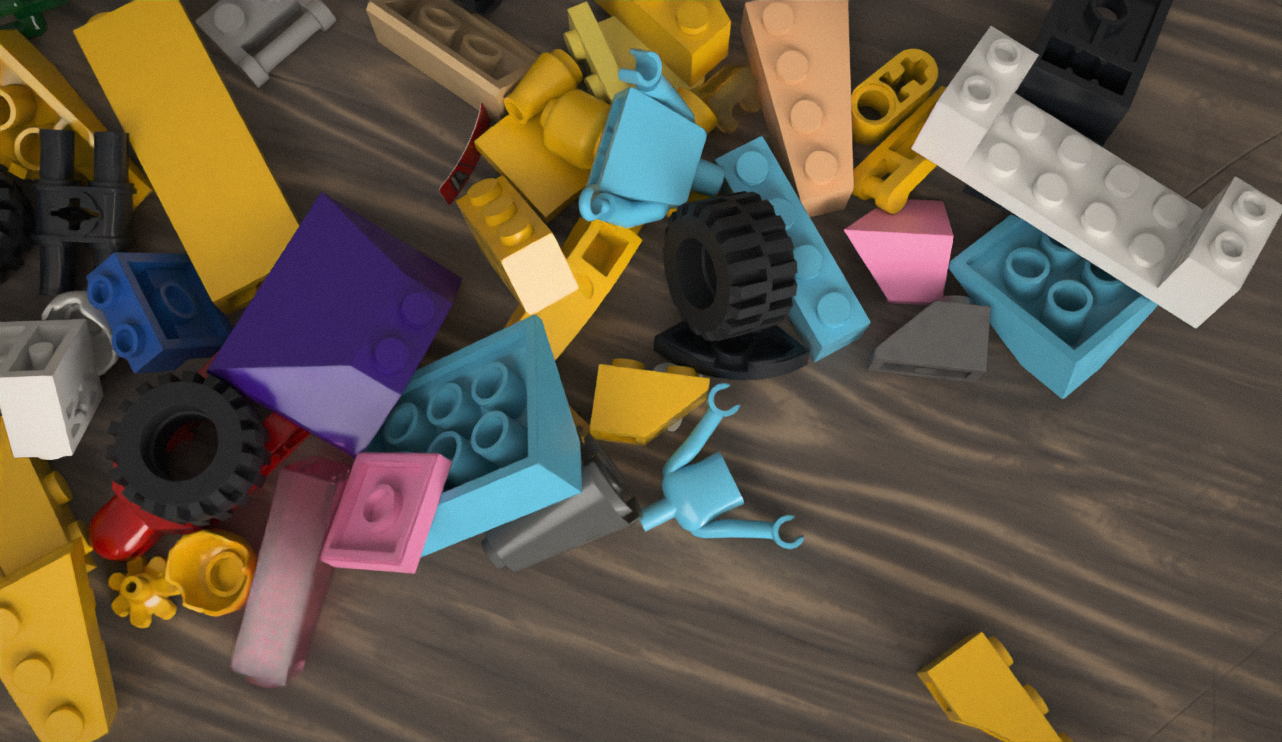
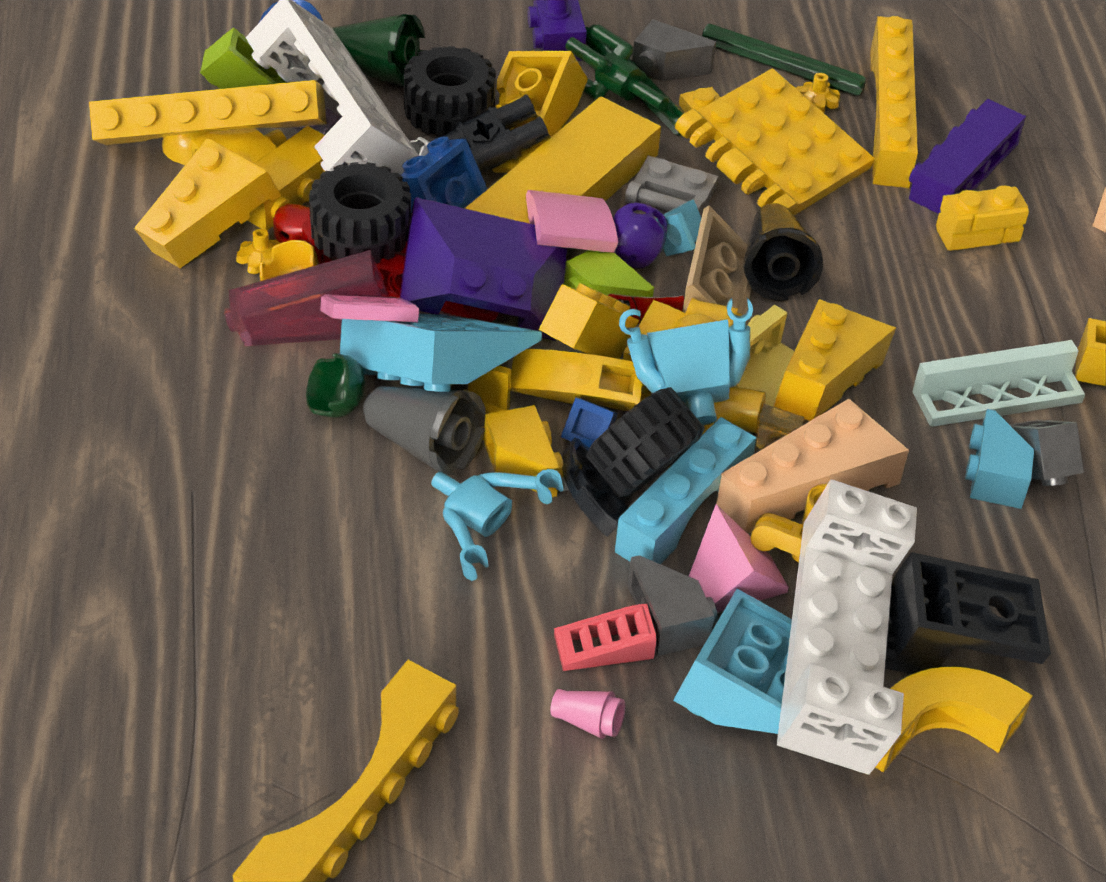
camera: 65 degrees right, 30 degrees down
(308, 179) = (571, 221): none -> bright pink slope
(349, 50) = (682, 228): none -> medium azure bracket
(353, 117) = (639, 235): none -> dark purple helmet
(405, 182) = (606, 274): none -> lime slope
(451, 590) = (335, 386): none -> dark green hair
(634, 308) = (587, 421): none -> blue plate
(969, 413) = (617, 622): none -> coral slope
(1040, 491) = (590, 710): none -> bright pink cone
(1158, 119) = (961, 701): none -> yellow arch

